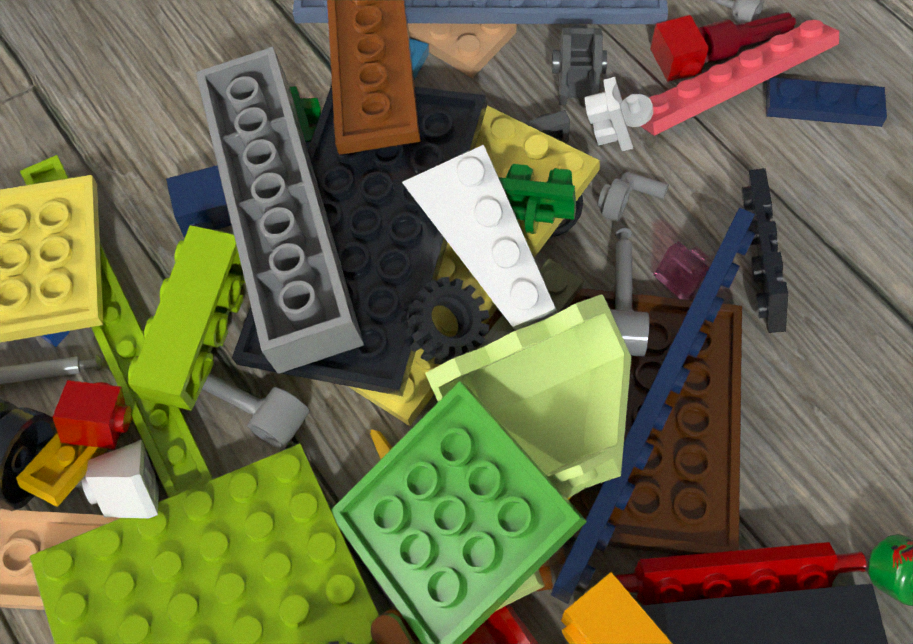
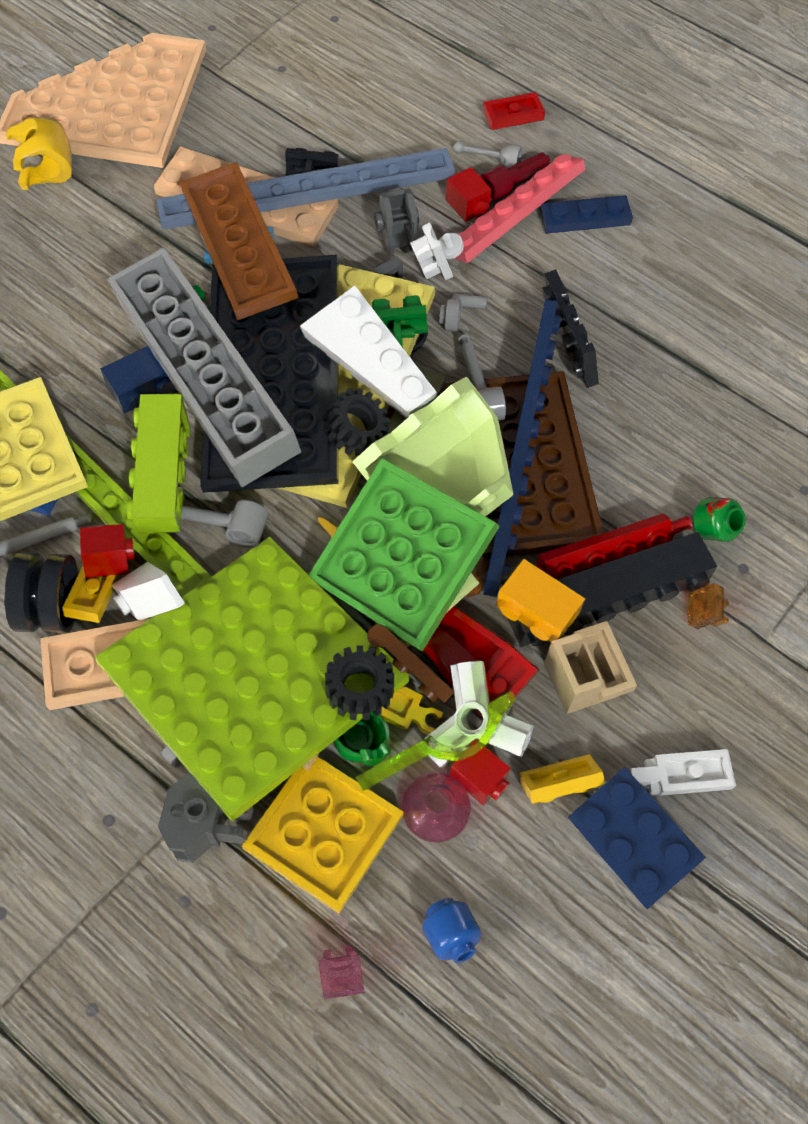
camera: 20 degrees left, 0 degrees up
(682, 269) = (514, 355): clear pink tile -> none

